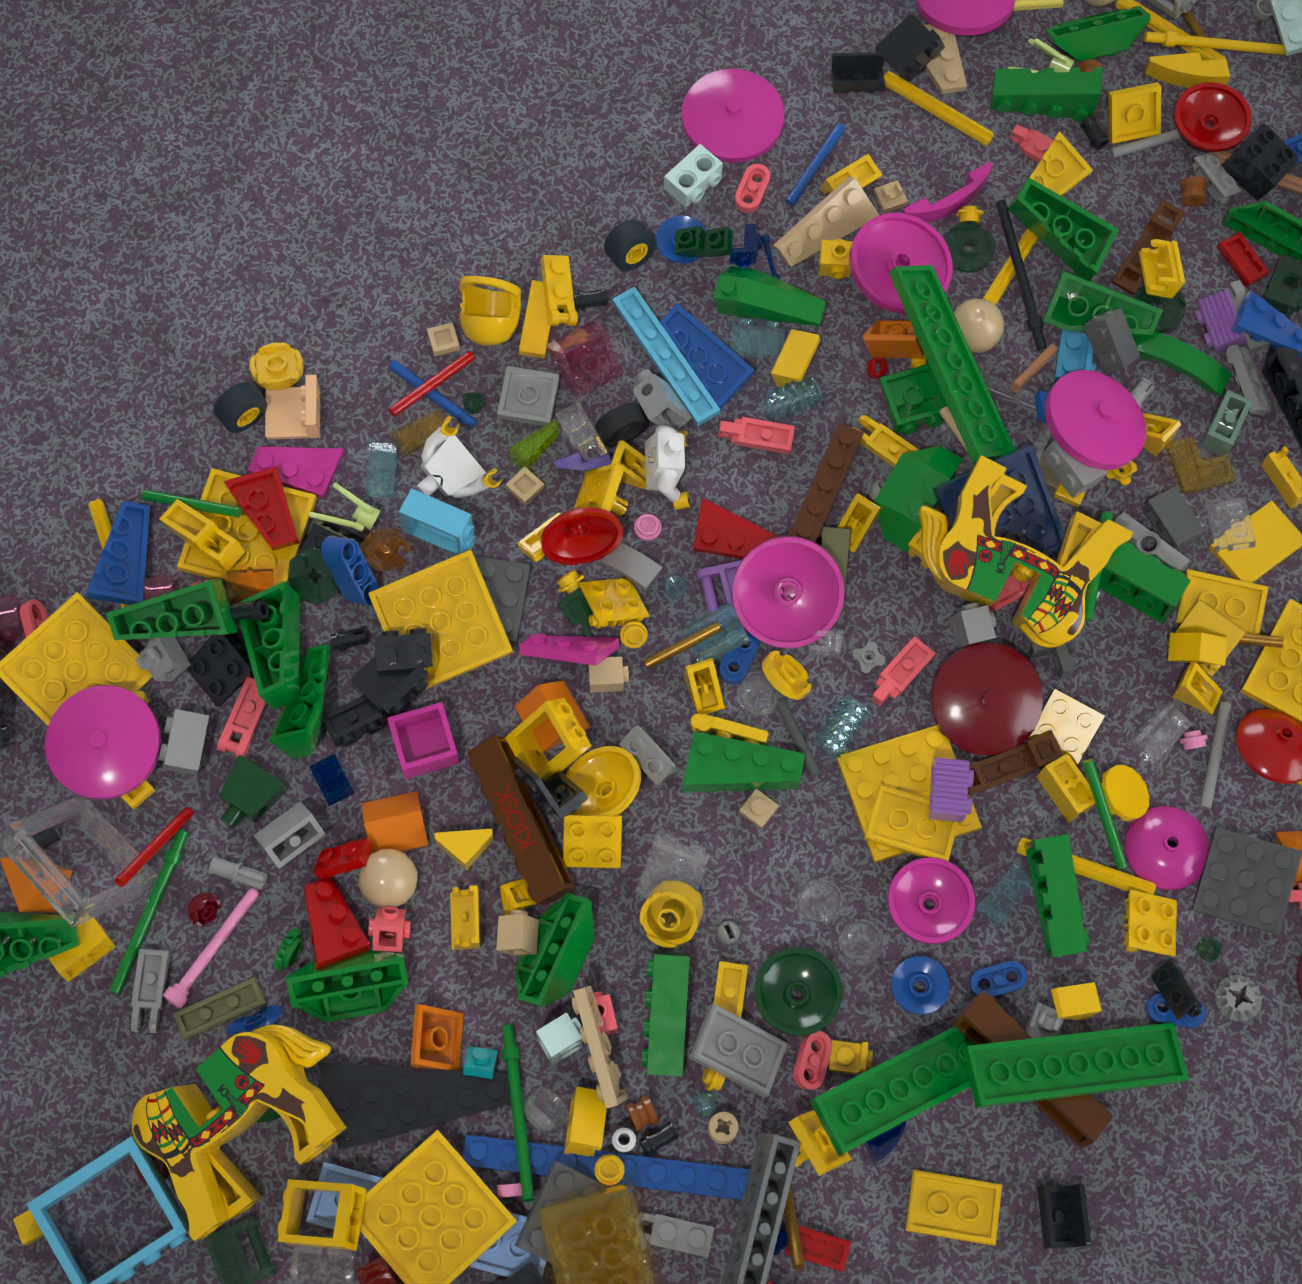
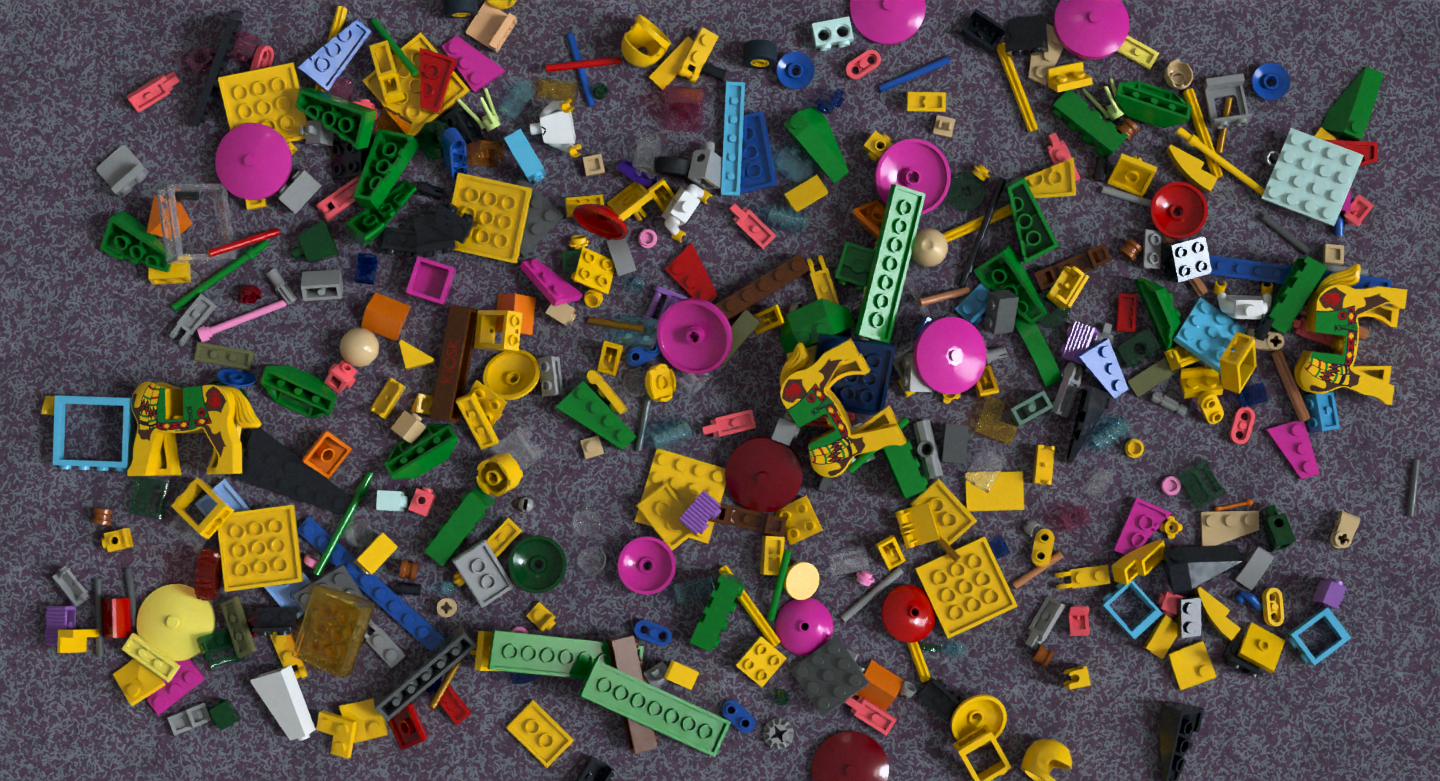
camera: 30 degrees right, 15 degrees up
(249, 610) = (384, 143): black pin -> none
(289, 950) = (279, 350): green gear -> none
(332, 924) = (312, 352): red wing -> none
(343, 858) = (342, 319): red plate -> none
(443, 339) = (609, 39): tan plate -> none
(480, 1062) = (342, 482): teal plate -> none
(528, 396) = (634, 109): light grey plate -> none
(533, 446) = (613, 144): clear neon green slope -> none
(556, 795) = (480, 365): black bracket -> none
(598, 868) = (477, 420): none -> yellow tile
(600, 1048) = (402, 529): tan wing -> none
(609, 1170) = (369, 588): yellow plate -> none
(626, 1133) = (384, 575): white pin -> none
(703, 243) = (805, 82): dark green slope -> none
(765, 239) = (847, 103): clear blue hinge -> none
(813, 1061) = (521, 606): coral plate -> none
(833, 218) = (892, 119): tan wing -> none
(865, 664) = (721, 399): light grey plate -> none
(870, 369) = (857, 233): red hinge -> none
(933, 978) = (597, 606): blue dish -> none
(952, 203) = (953, 150): dark pink slope -> none
(985, 60) = (1068, 77): none -> yellow bracket
(1176, 990) = (744, 704): black hinge -> none
(1197, 648) = (903, 530): yellow slope -> none

